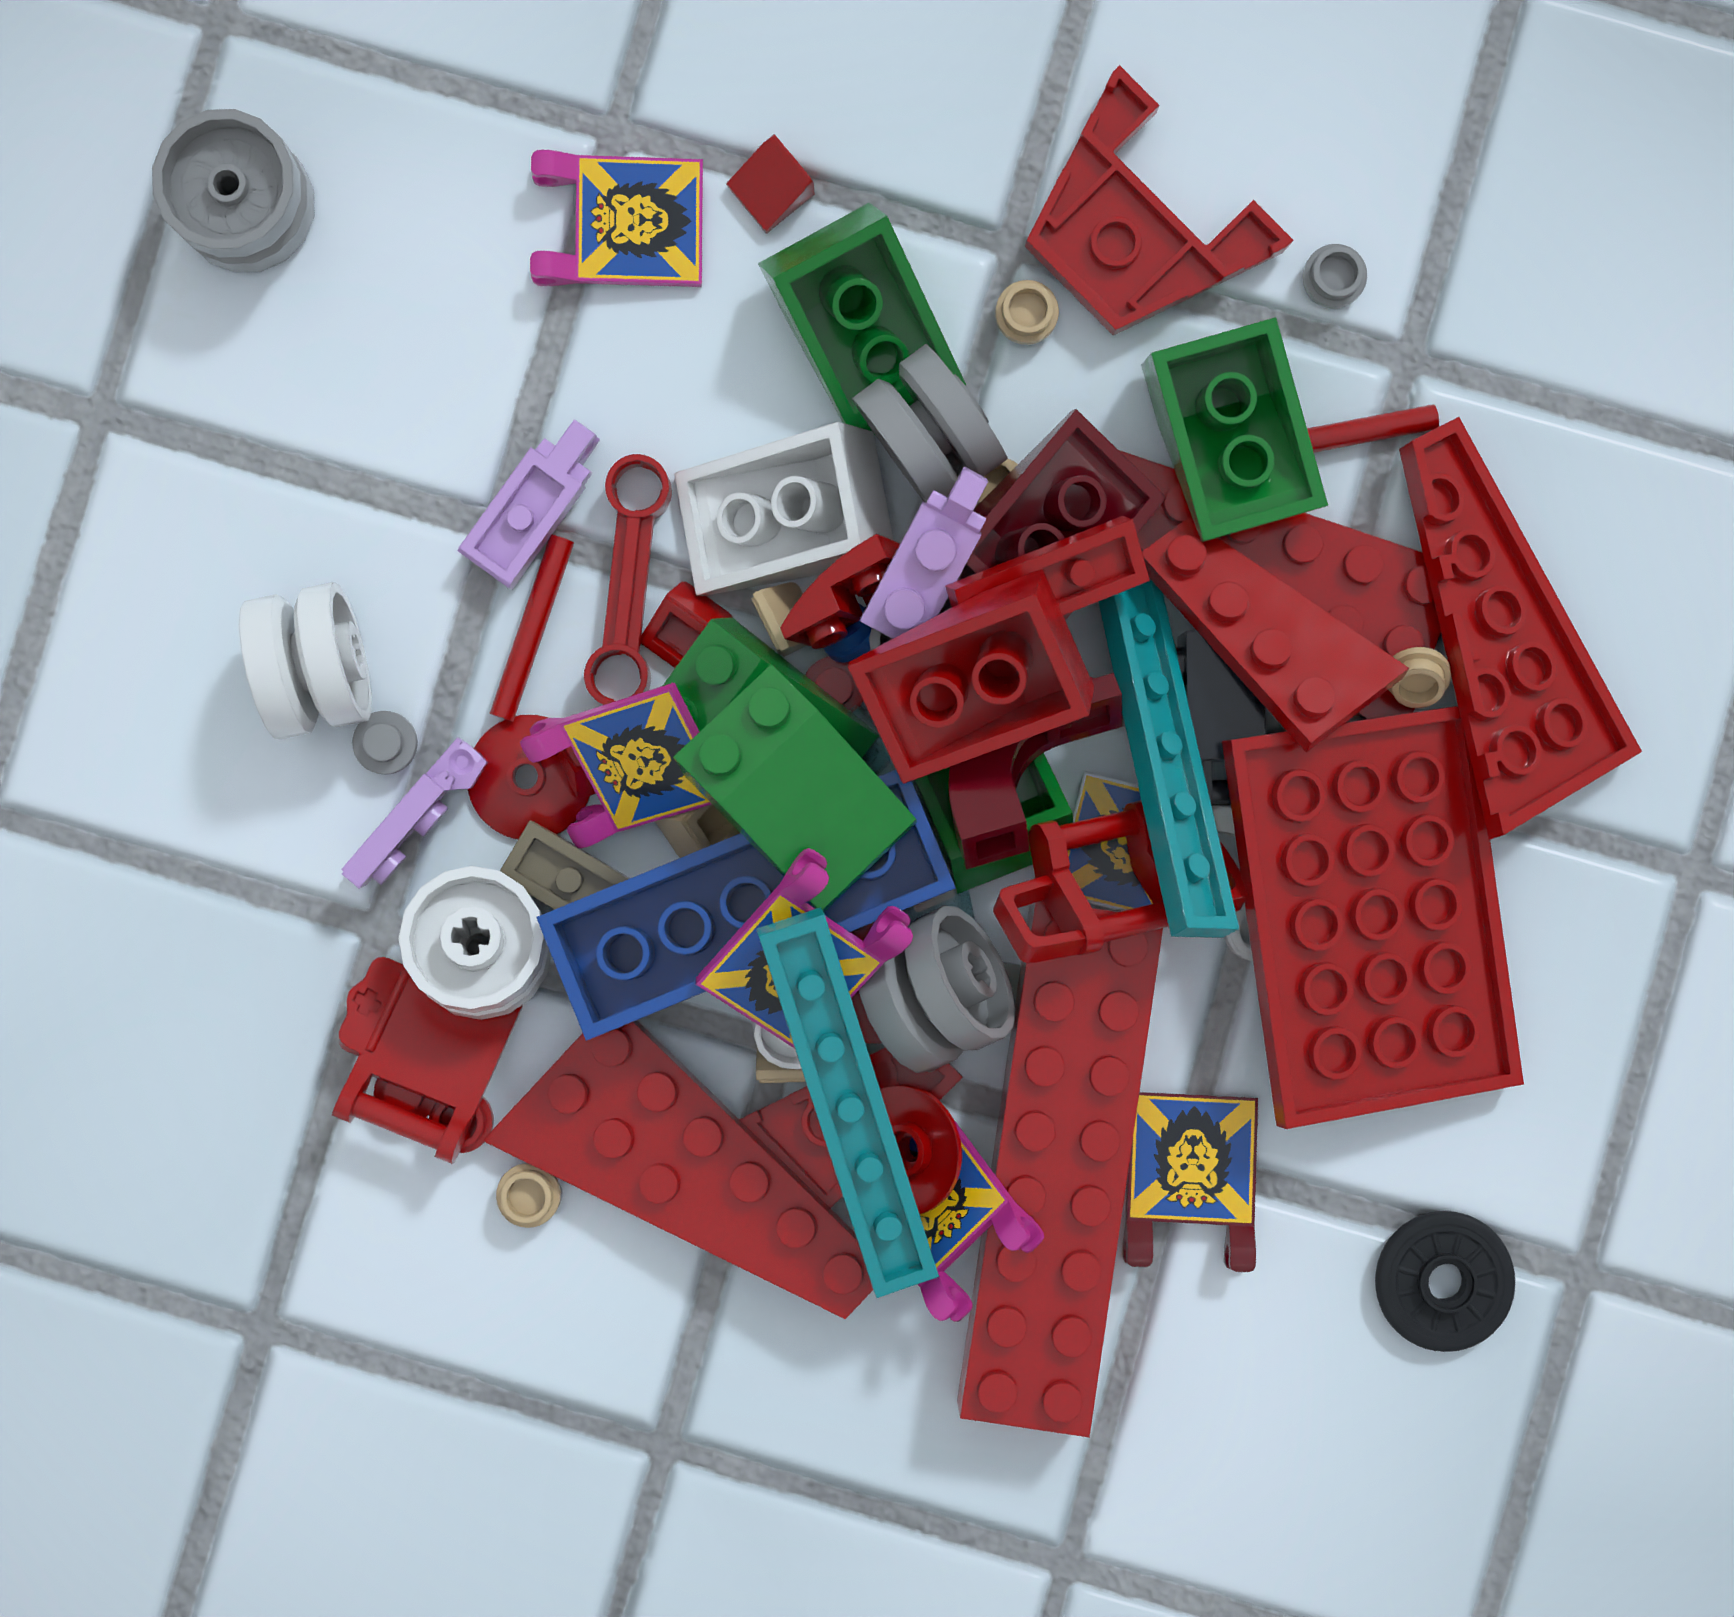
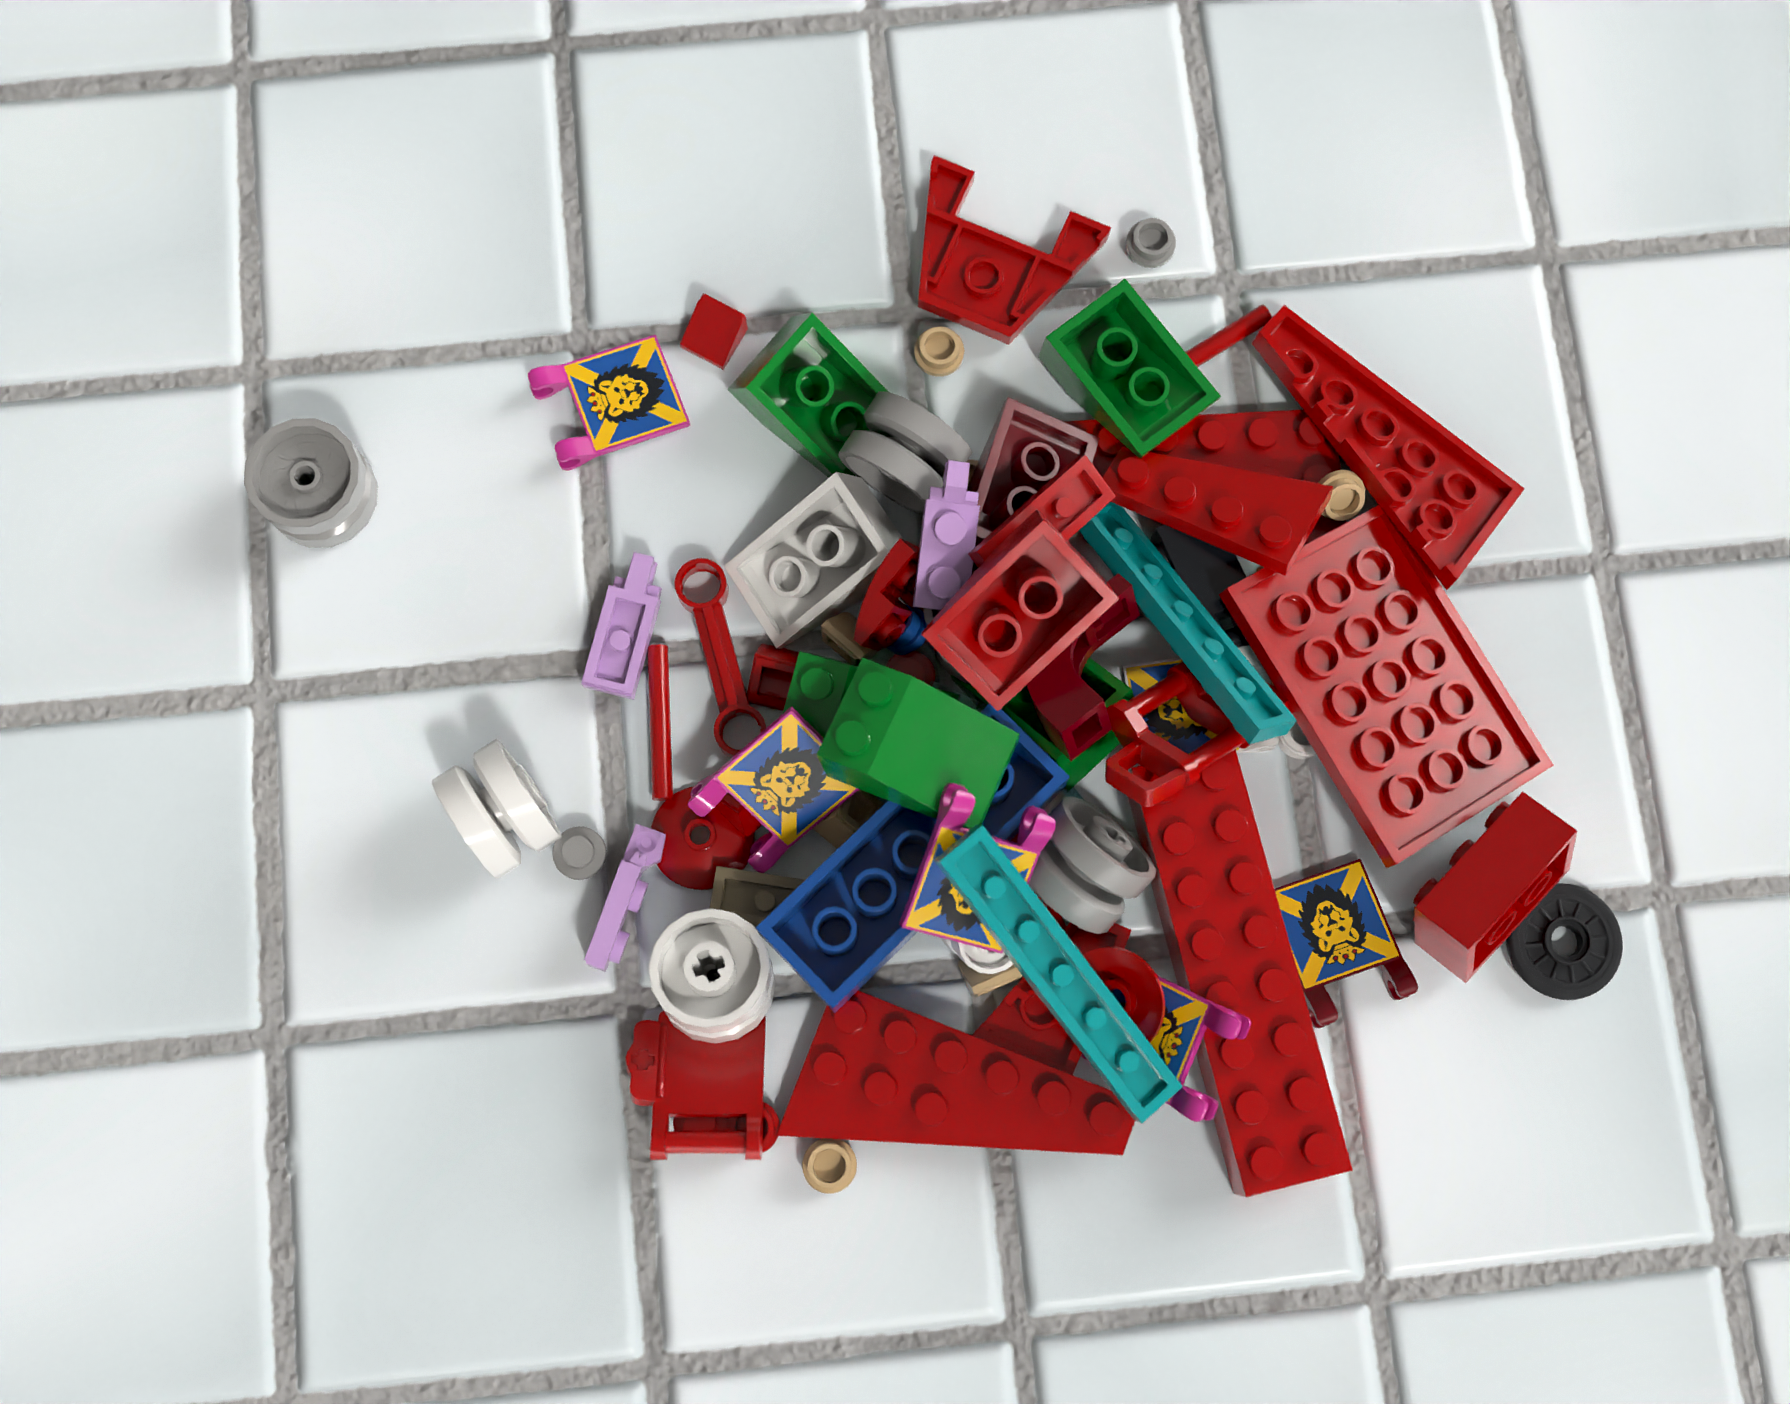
camera: 25 degrees left, 10 degrees down
(1386, 1193) = (1492, 885): none -> red brick

